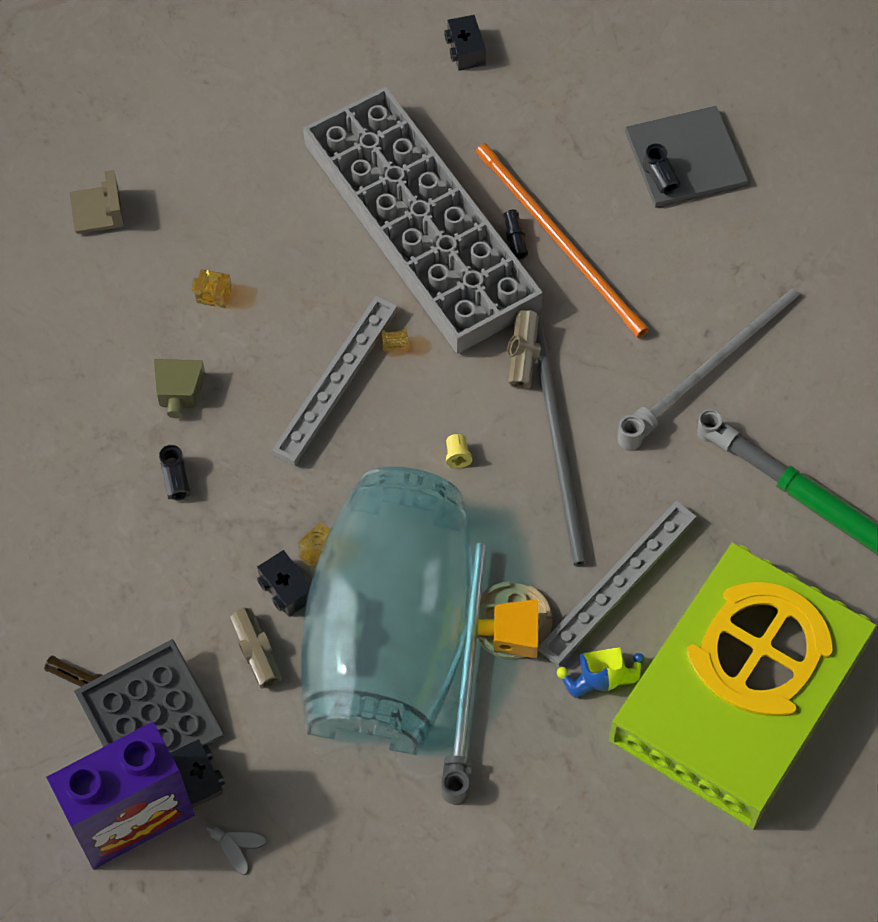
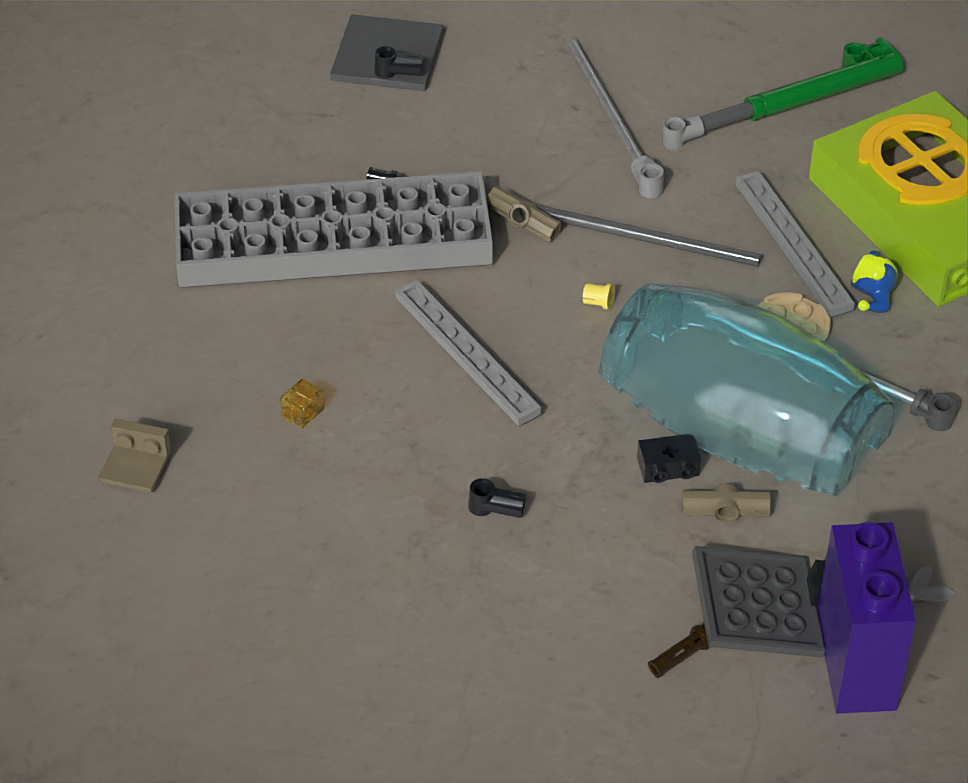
camera: 65 degrees left, 15 degrees down
(178, 384) = (395, 465): olive torso -> none
(315, 536) = (640, 422): clear yellow brick -> none
(395, 340) = (454, 292): clear yellow bush -> none
(466, 42) = (155, 136): black brick -> none
(513, 628) = (813, 309): light orange torso -> none
(629, 317) = (531, 143): orange piece -> none

